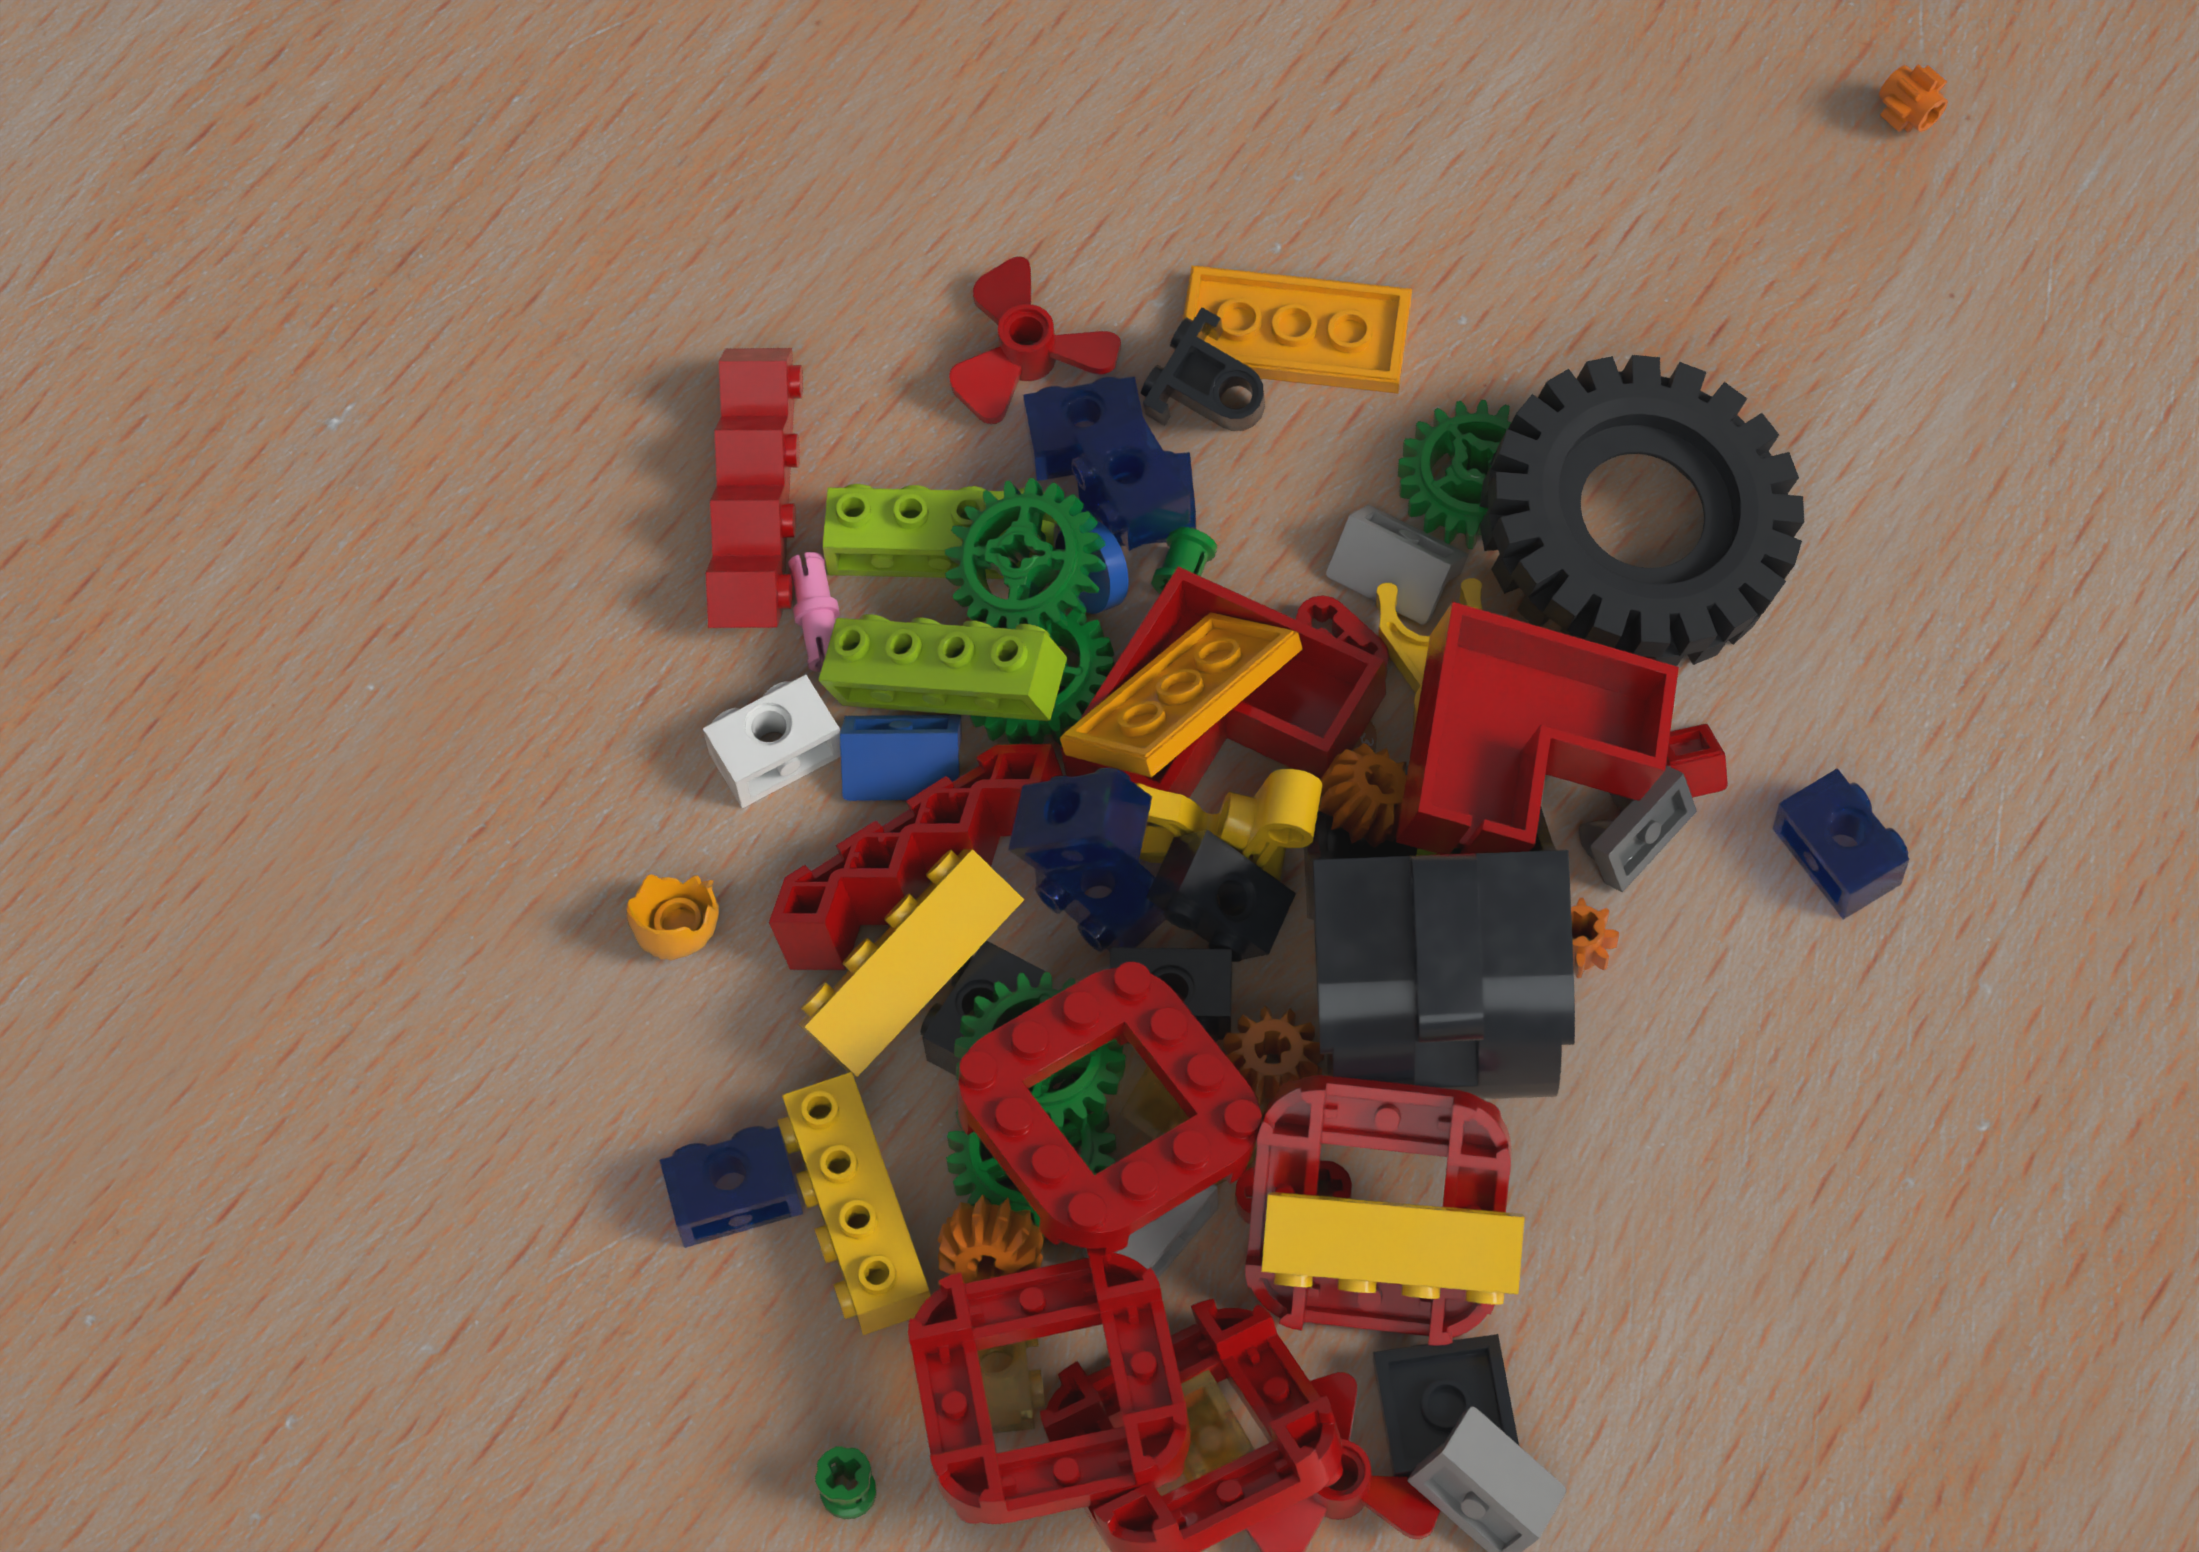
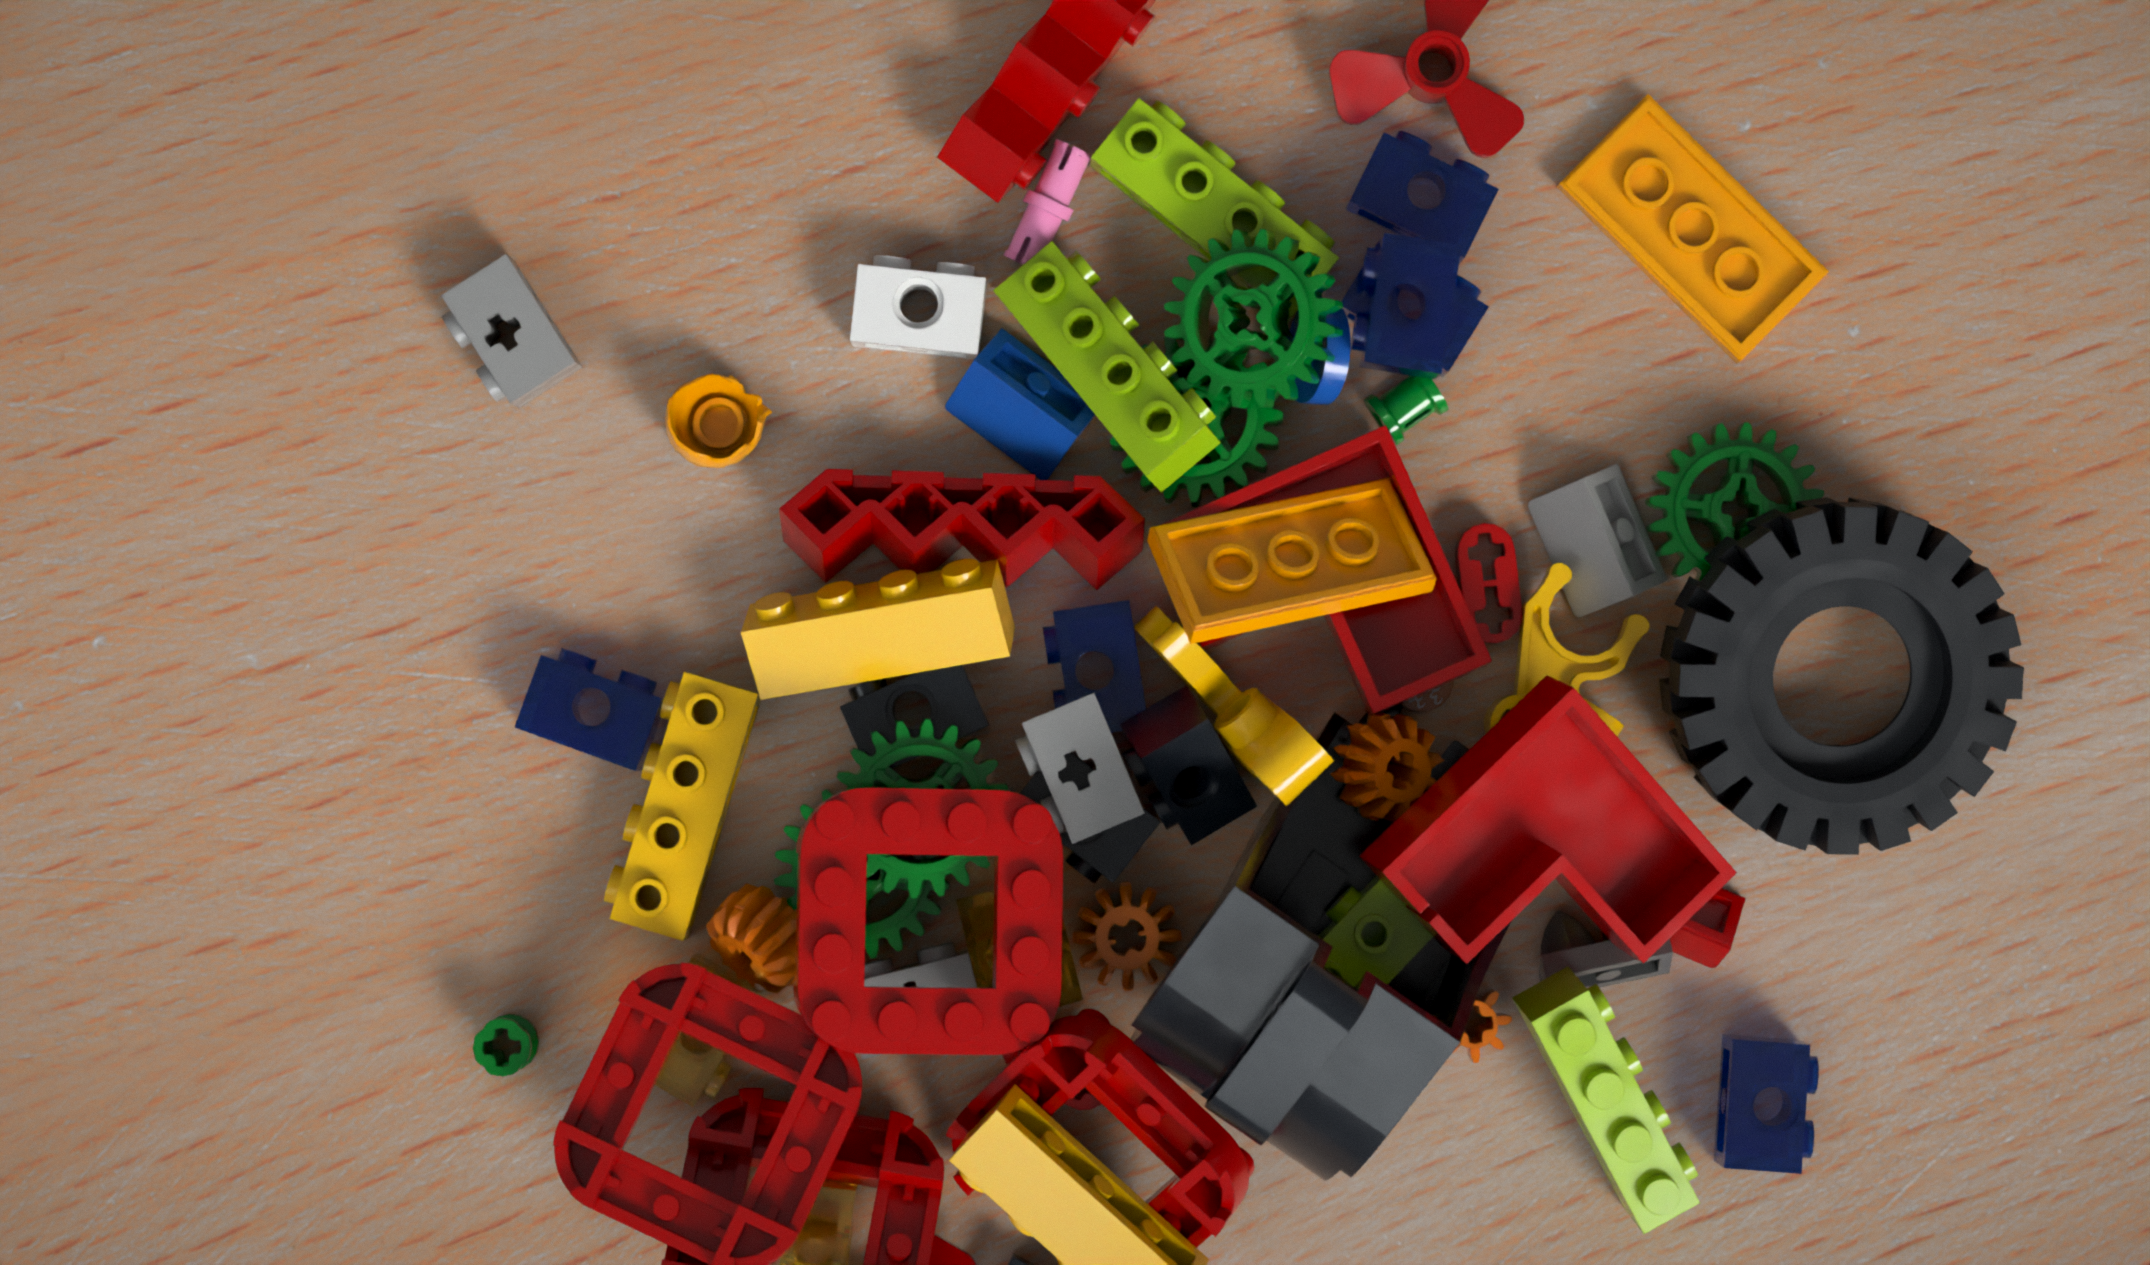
camera: 25 degrees right, 25 degrees up
(451, 939) = (501, 295): none -> light grey brick
(1080, 822) = (1104, 629): clear blue brick -> none
(1126, 914) = (1110, 794): none -> light grey brick
(1200, 376) = (1561, 228): black pin -> none
(1724, 905) = (1606, 1099): none -> lime brick

